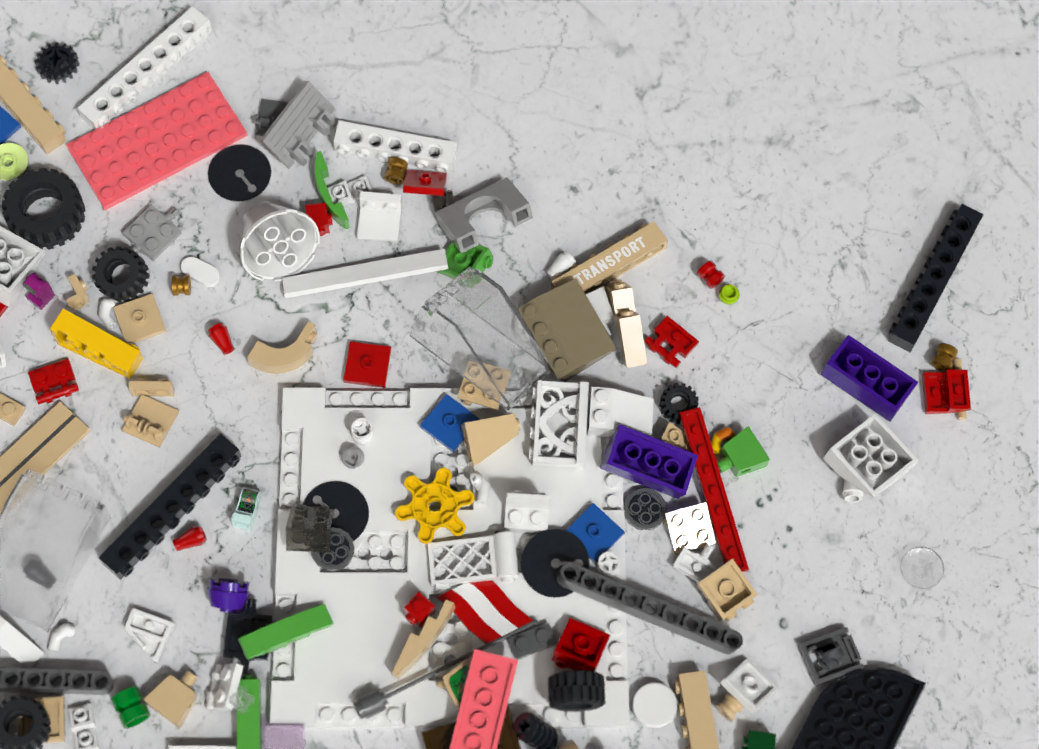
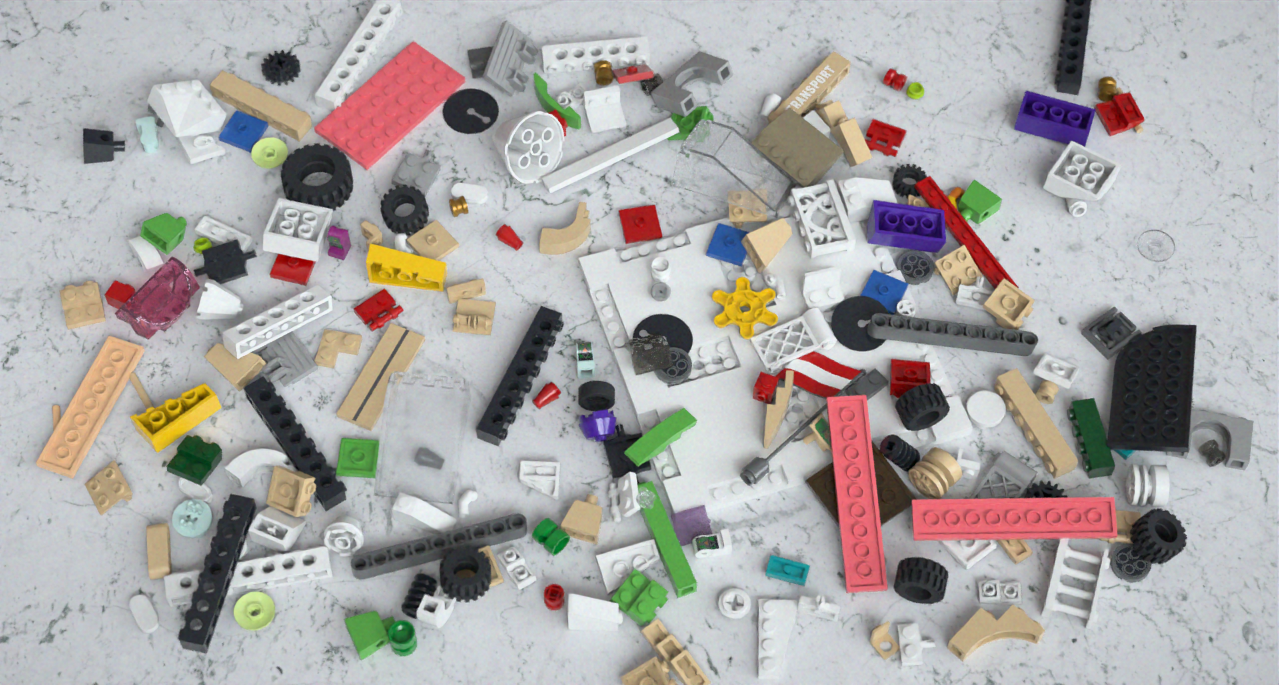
camera: 15 degrees left, 10 degrees down
(239, 558) = (596, 395): none -> black tyre

